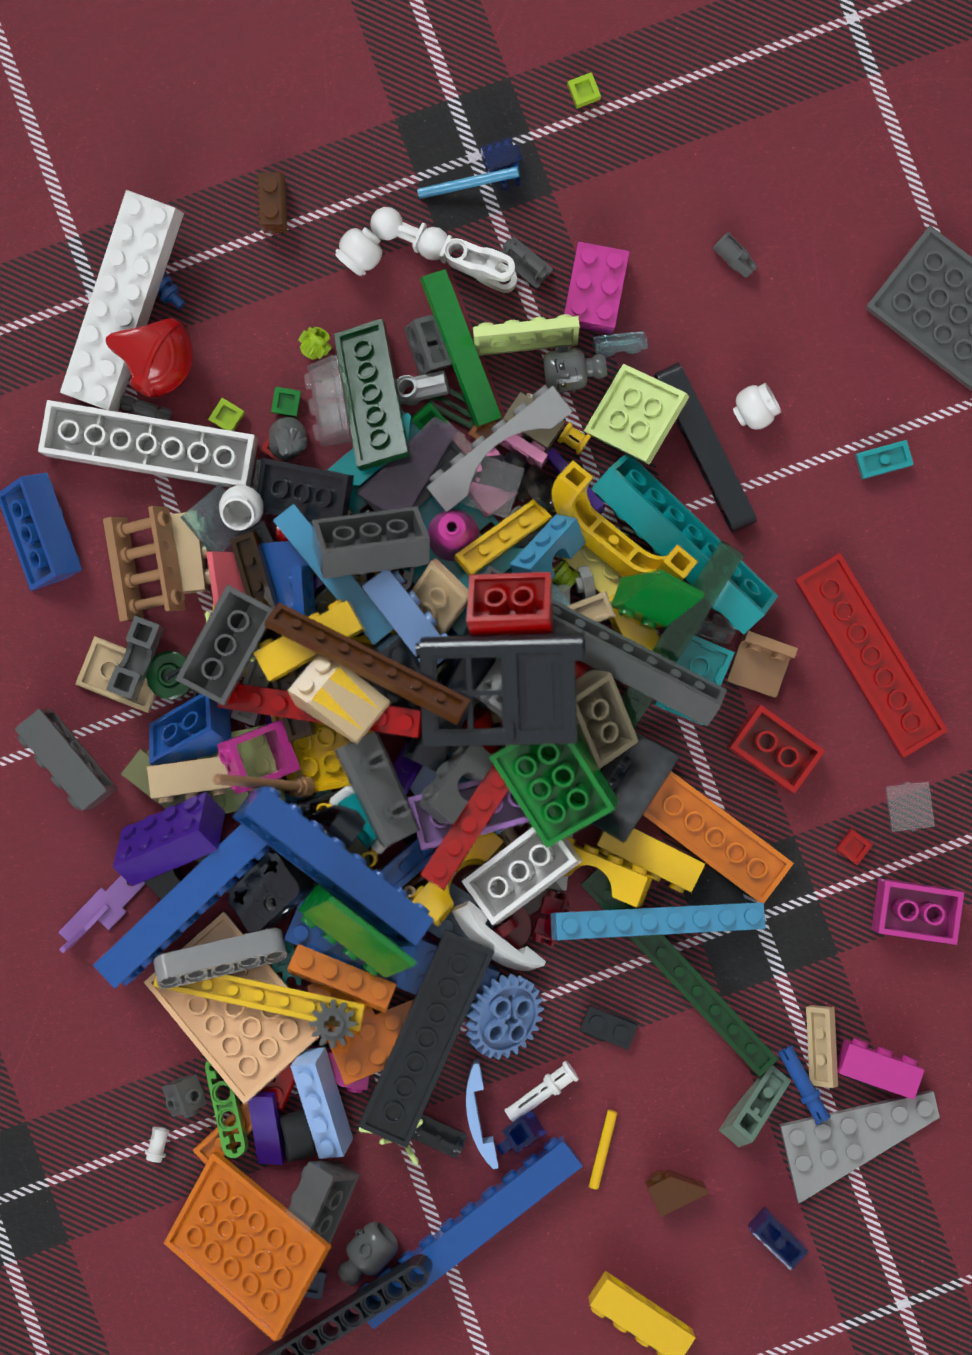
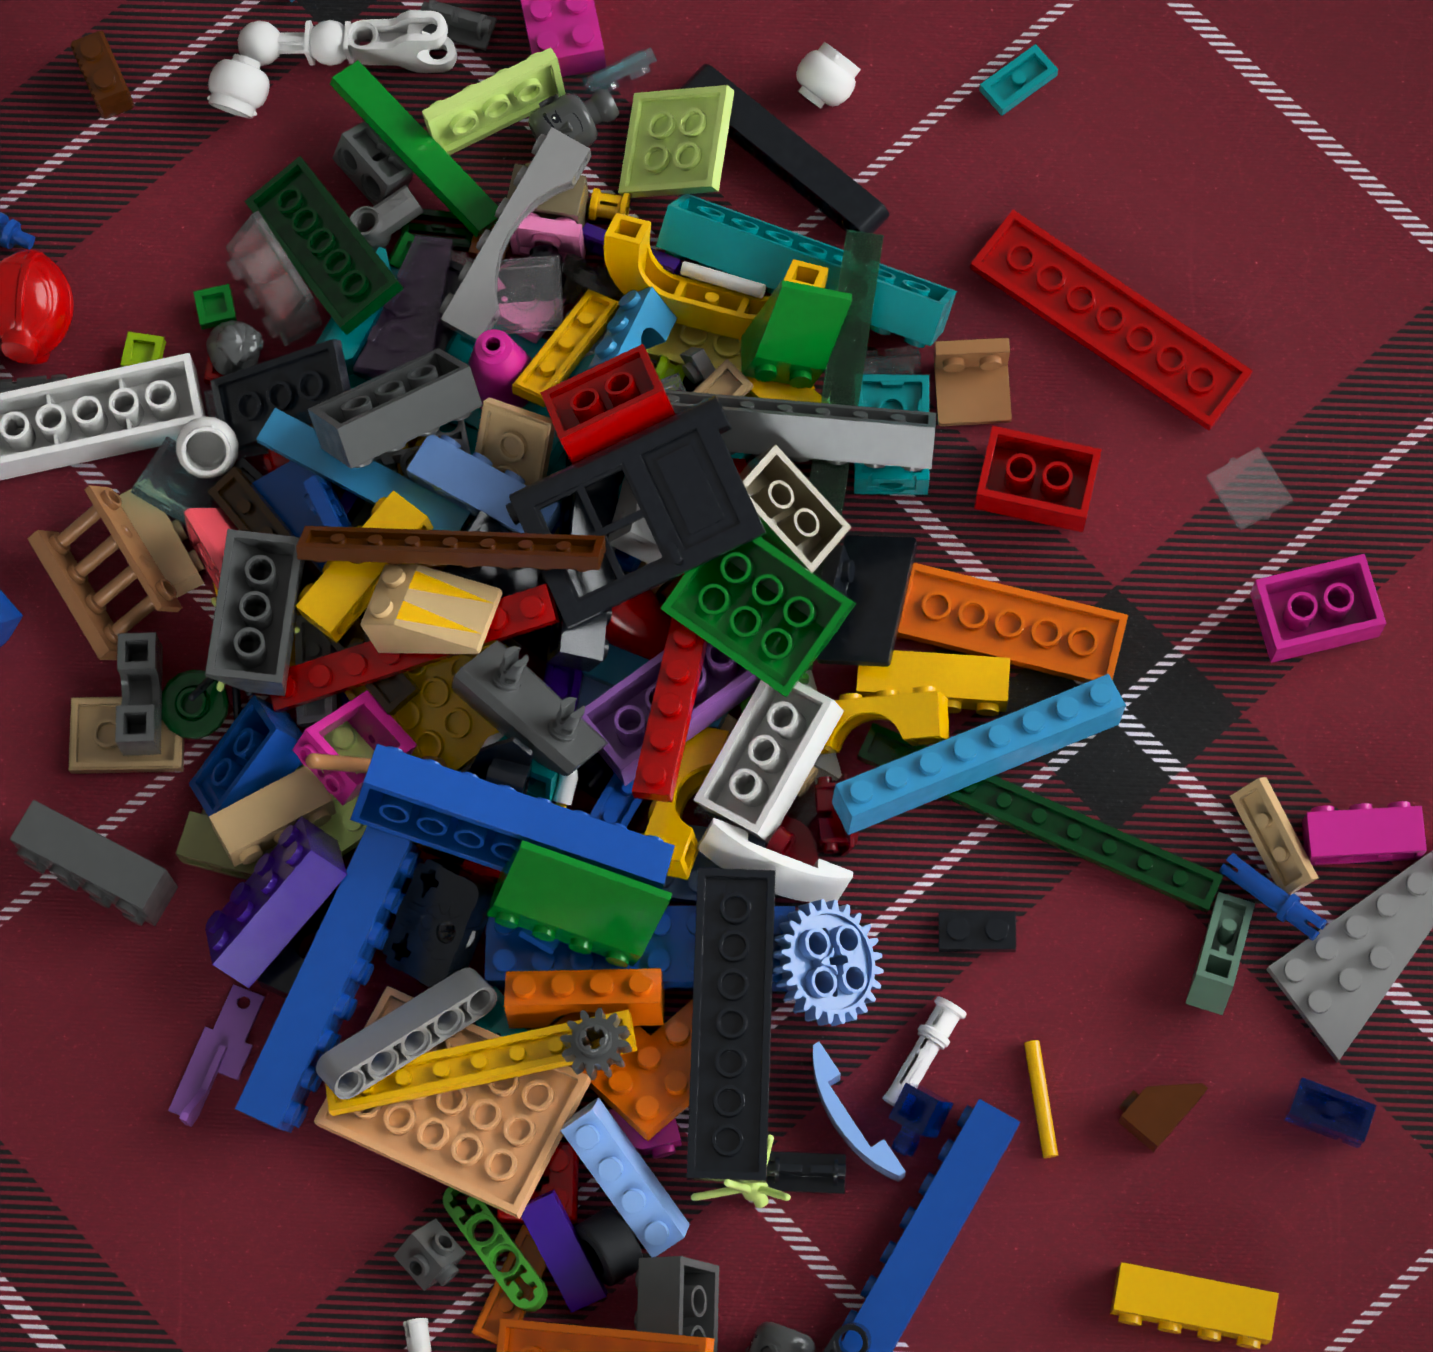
camera: 15 degrees left, 15 degrees down
(315, 343) = (223, 218): lime gear -> none
(442, 796) = (621, 683): dark grey arch -> none
(626, 530) = (723, 279): none -> white piece
(854, 846) = (1199, 567): red tile -> none

